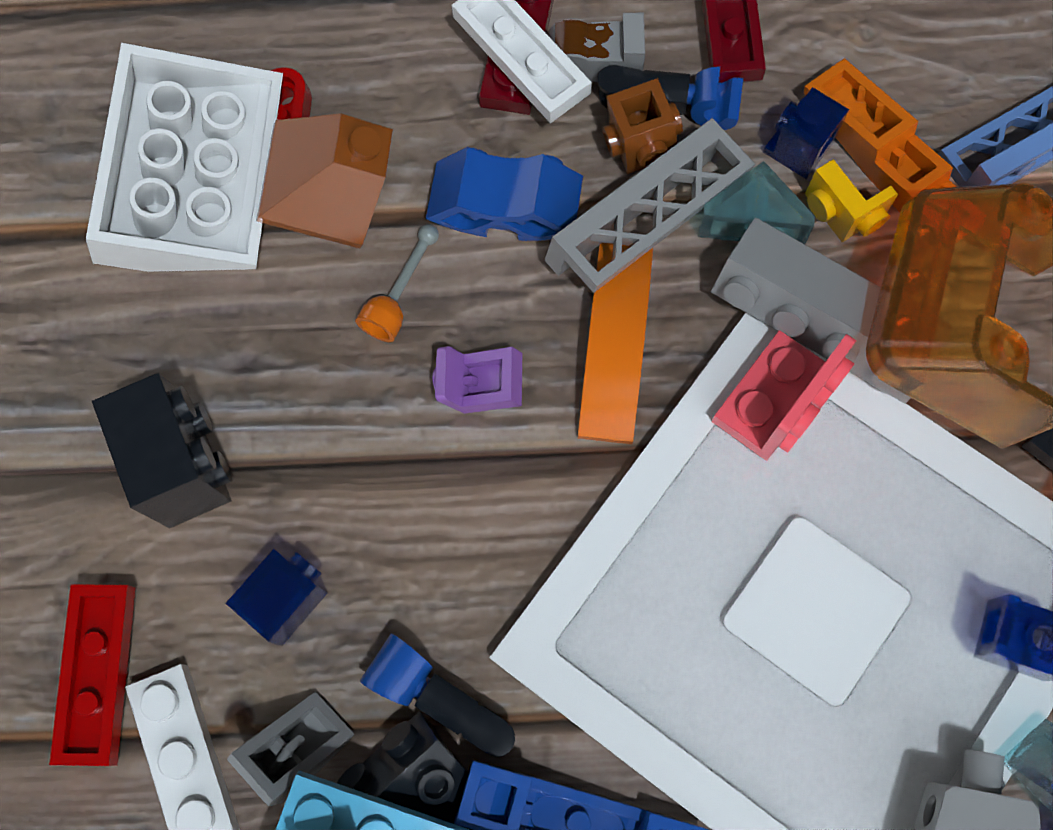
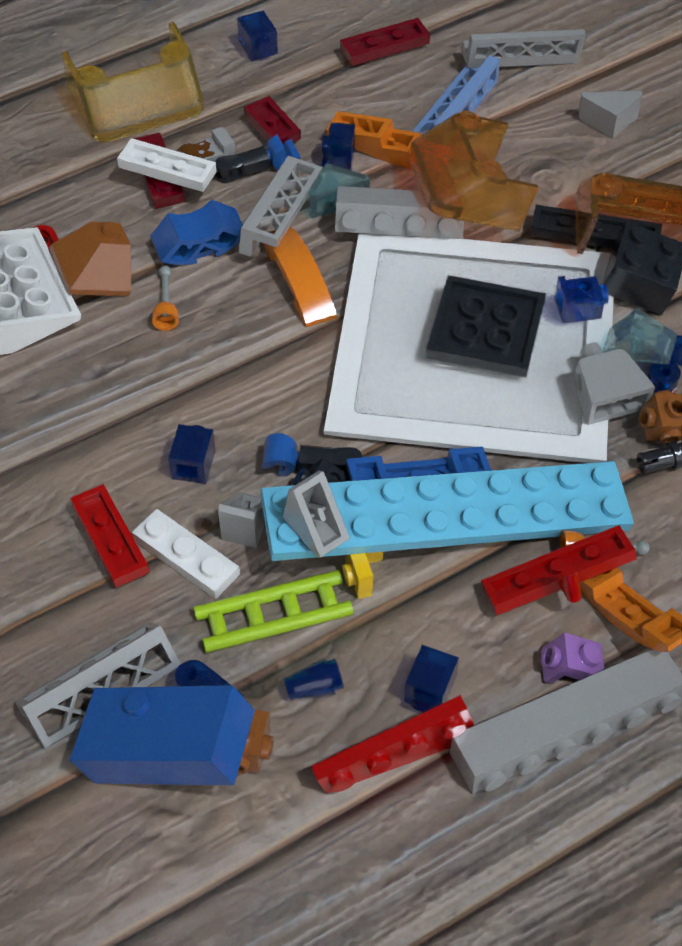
camera: 35 degrees left, 20 degrees down
(163, 451) = (88, 409): black brick -> none
(478, 379) = (239, 317): medium lavender bracket -> none
(641, 125) = (251, 173): dark orange brick -> none
(782, 394) = (397, 251): coral bracket -> none
(842, 206) = (380, 170): yellow bracket -> none
(844, 610) = (486, 326): none -> black plate

